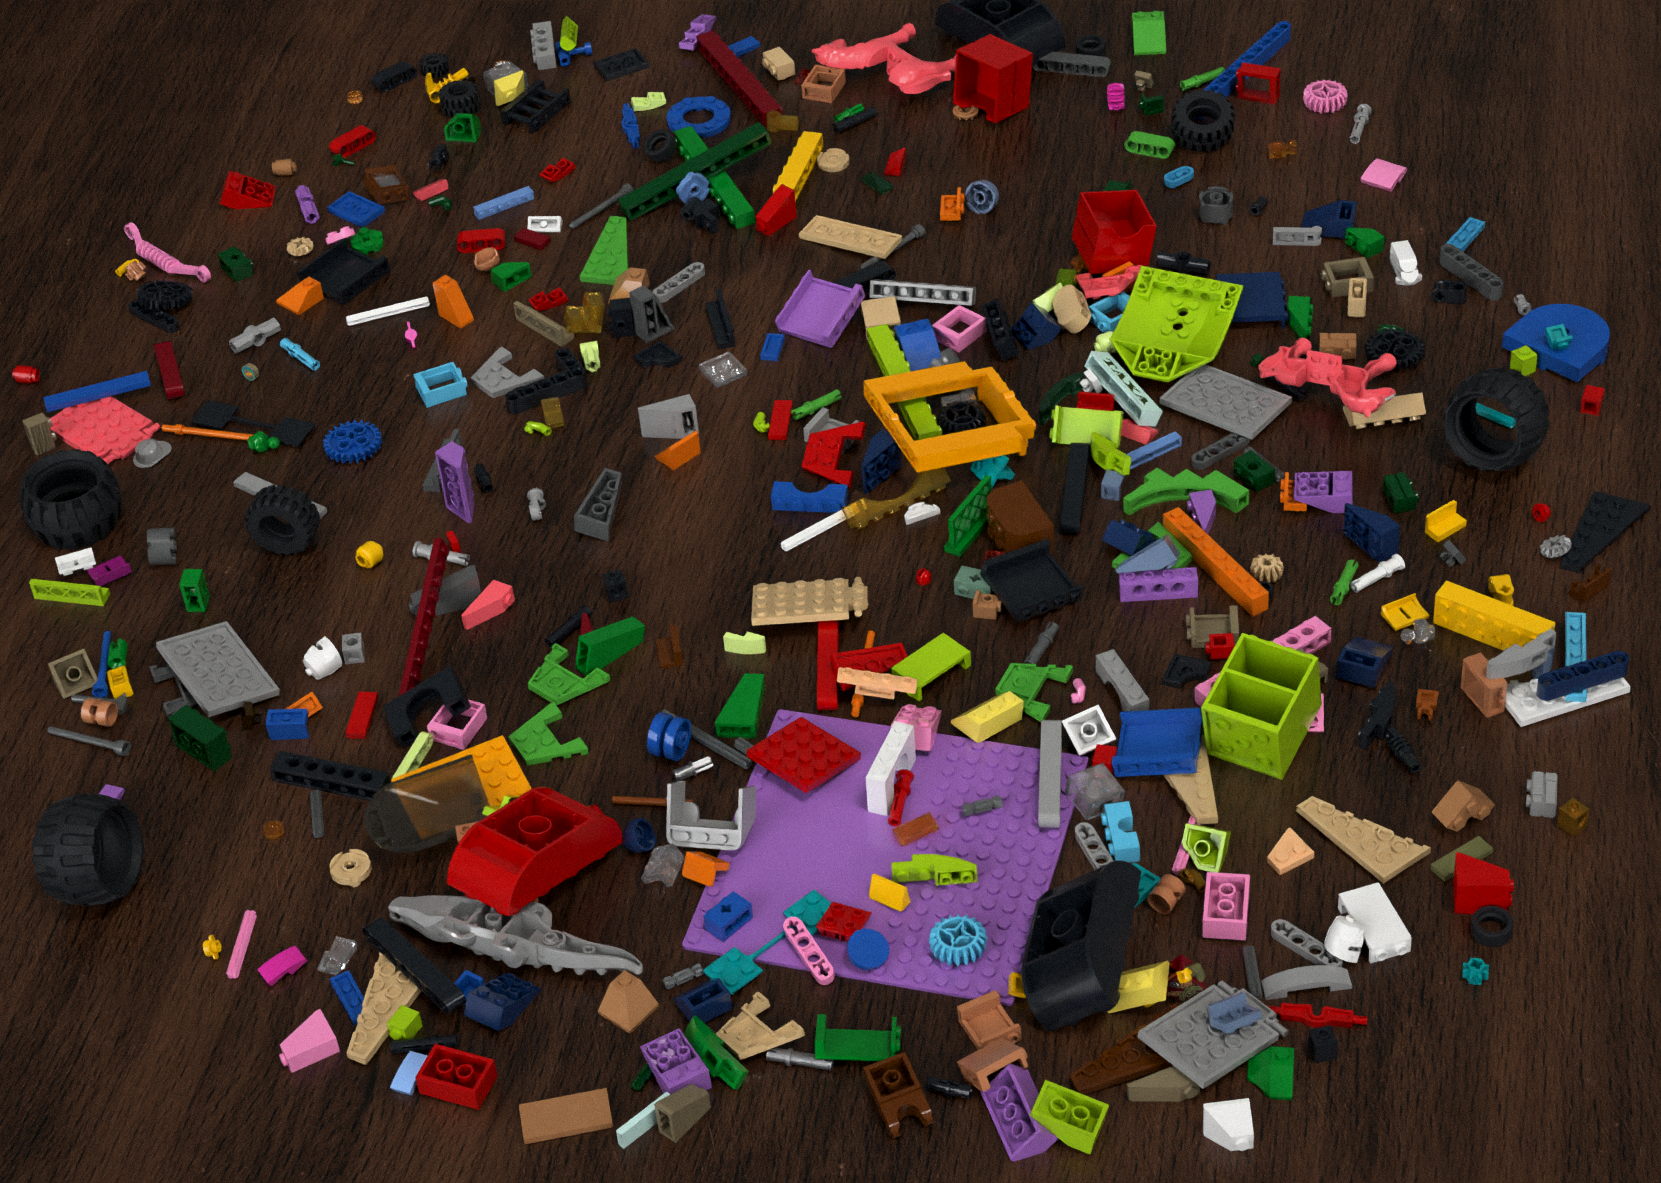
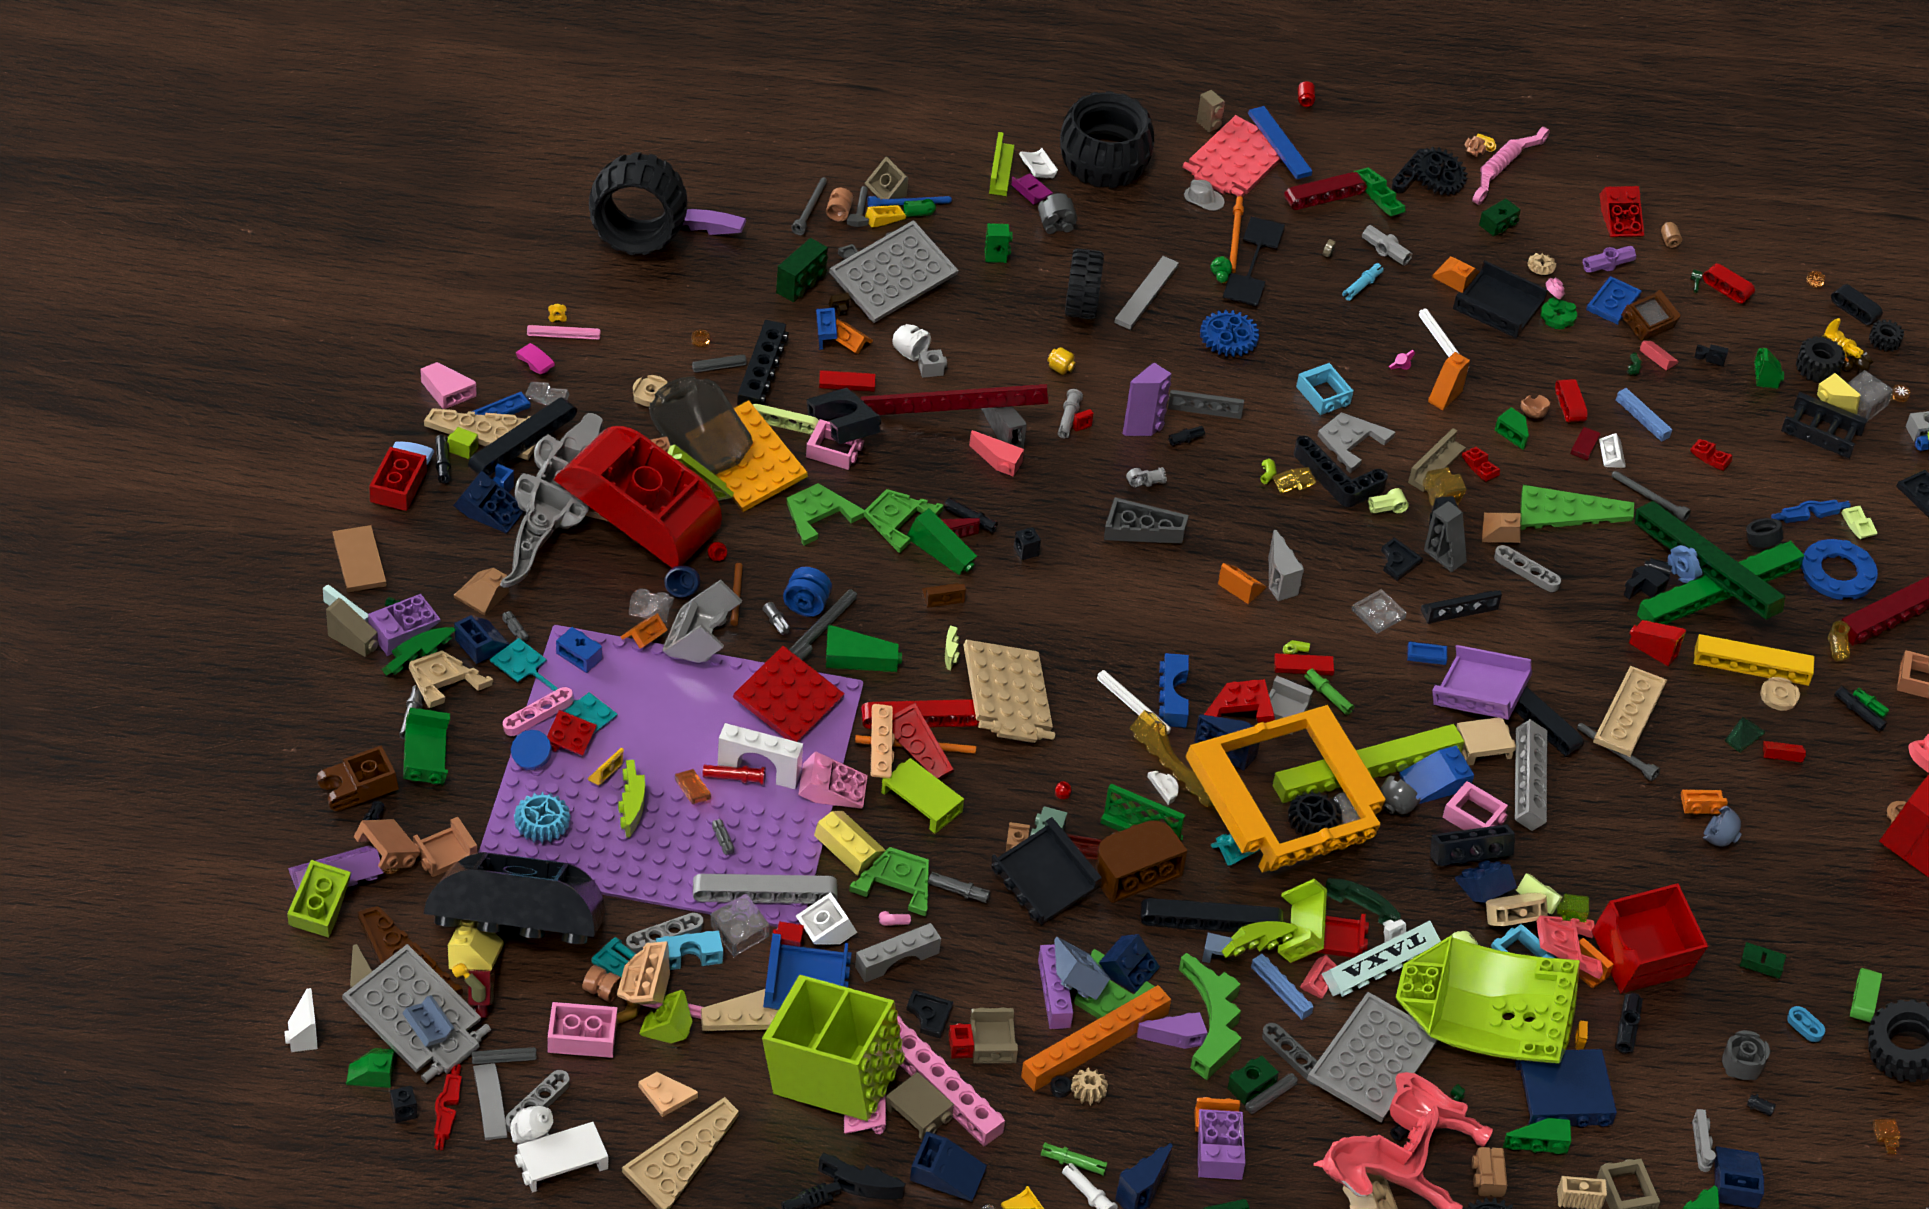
camera: 75 degrees right, 5 degrees up
(181, 336) = (1380, 193): none -> green slope
(1169, 851) = (646, 975): none -> light nougat wedge

